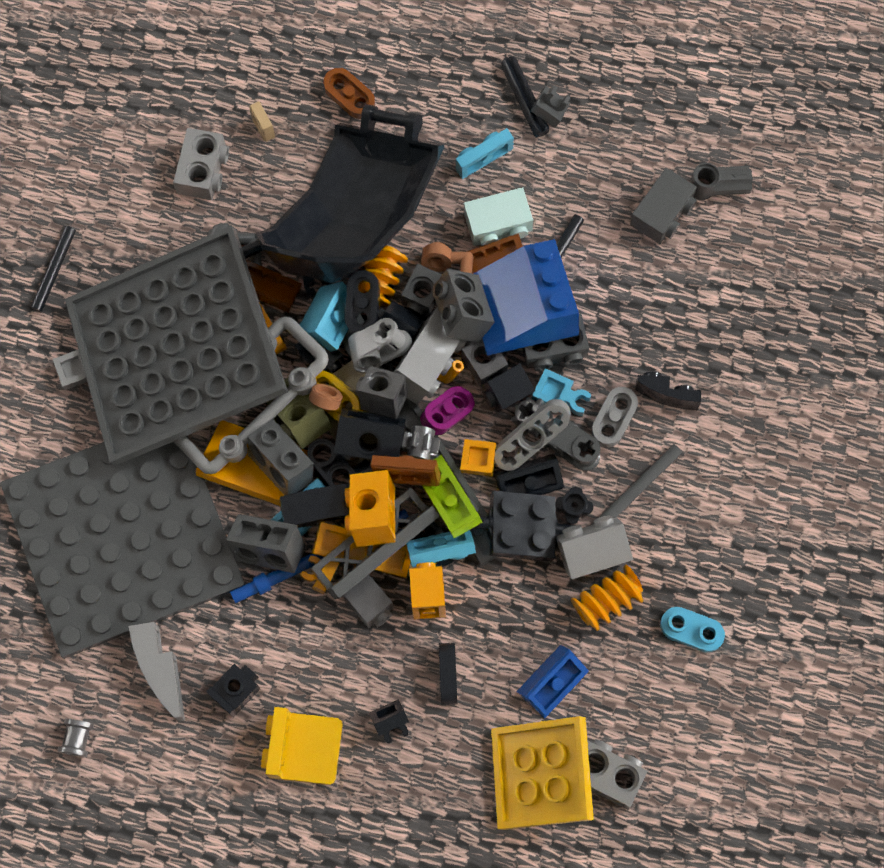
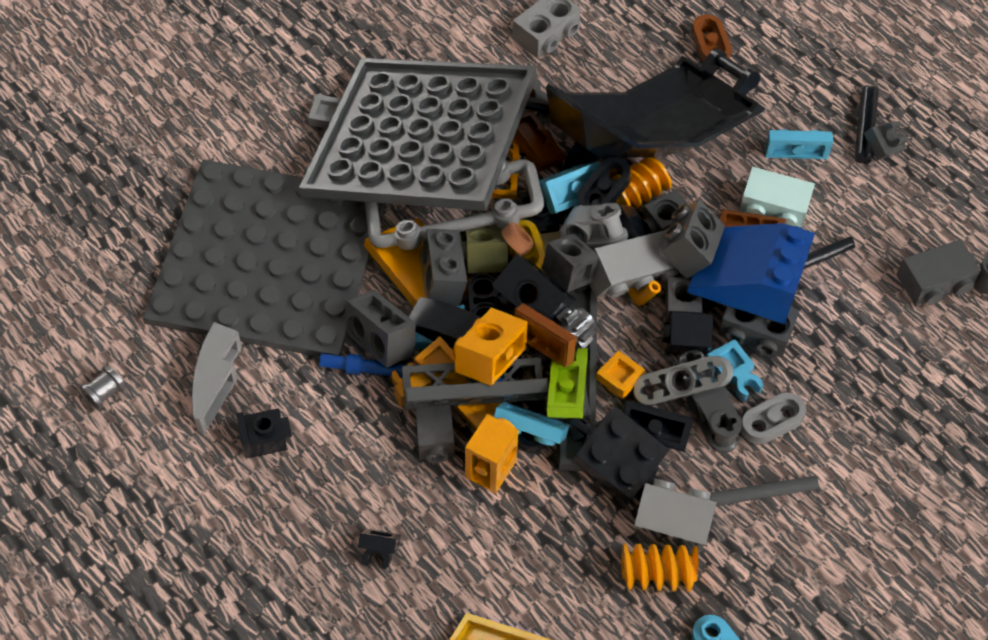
camera: 30 degrees right, 15 degrees down
(53, 269) = (369, 36): black bar -> none
(262, 121) = (621, 21): tan tile -> none
(302, 747) = (282, 516): yellow bracket -> none
(440, 257) = (703, 192): nougat plate -> none
(445, 412) = (613, 320): magenta plate -> none
(448, 678) = (461, 539): black beam -> none
(552, 681) = (556, 610): blue slope -> none
(576, 496) = (683, 461): black plate -> none
(658, 389) = (830, 417): black slope -> none

